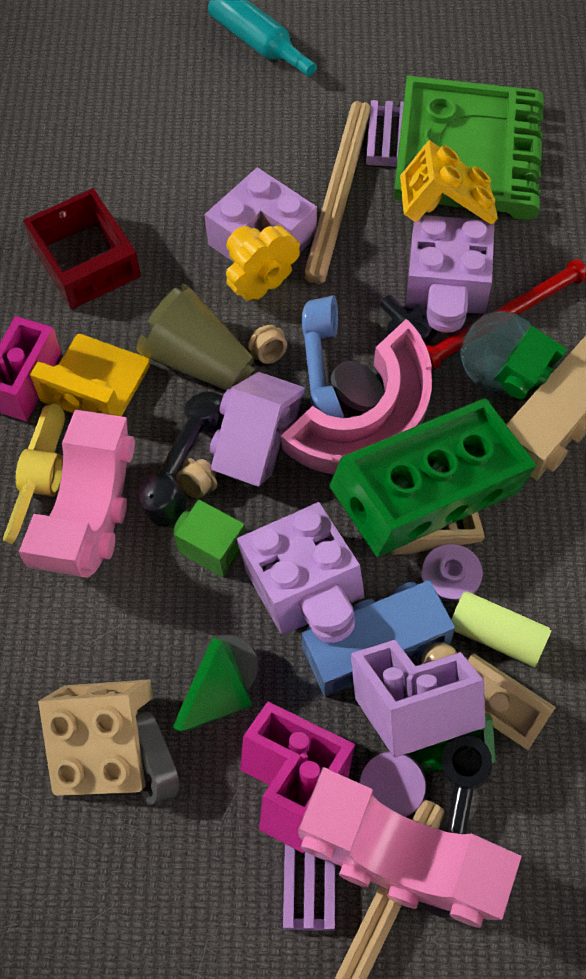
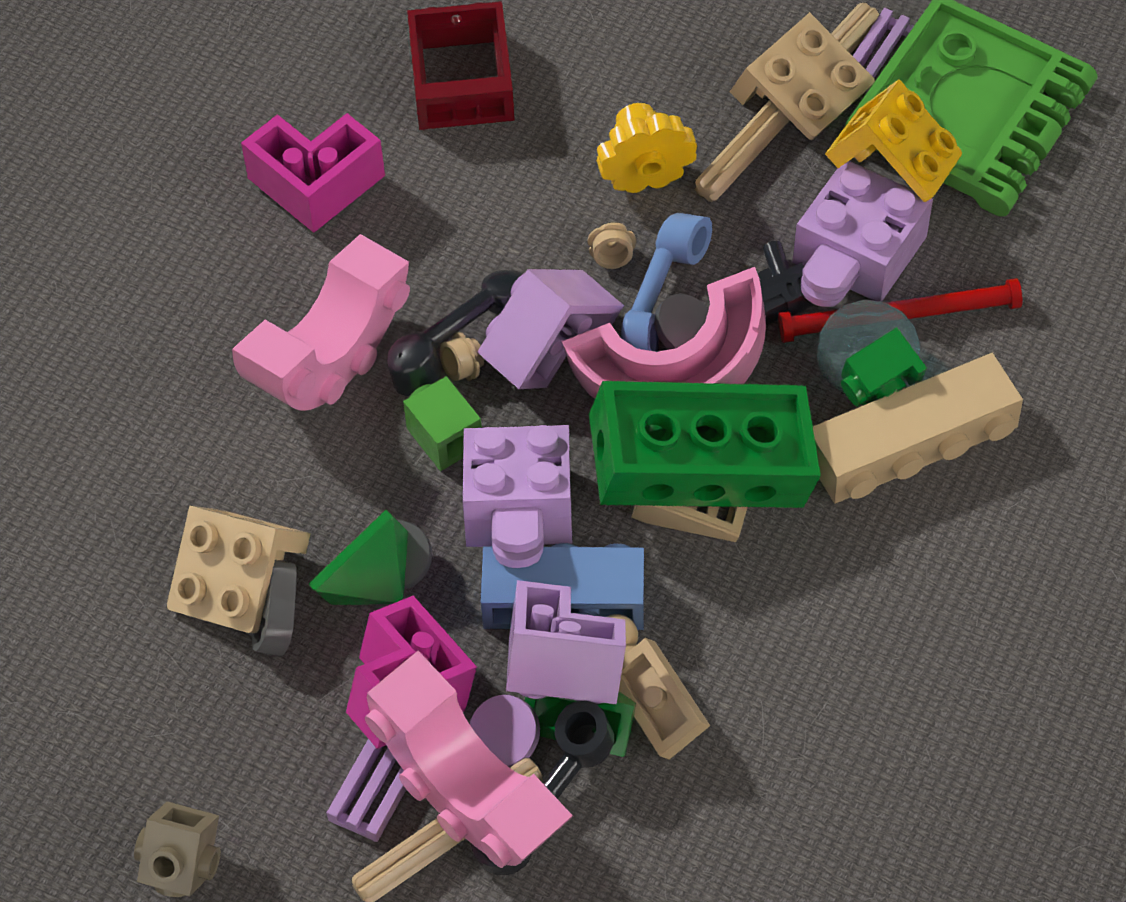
camera: 25 degrees right, 5 degrees down
(38, 467) = (301, 280): light yellow piece -> none
(91, 377) = (402, 211): yellow bracket -> none
(195, 341) = (527, 208): olive cone -> none
(260, 203) = (680, 86): lavender brick -> none
(346, 166) = (806, 77): none -> tan bracket
(452, 571) = (684, 560): lavender piece -> none
(500, 628) = (697, 630): yellowish green brick -> none

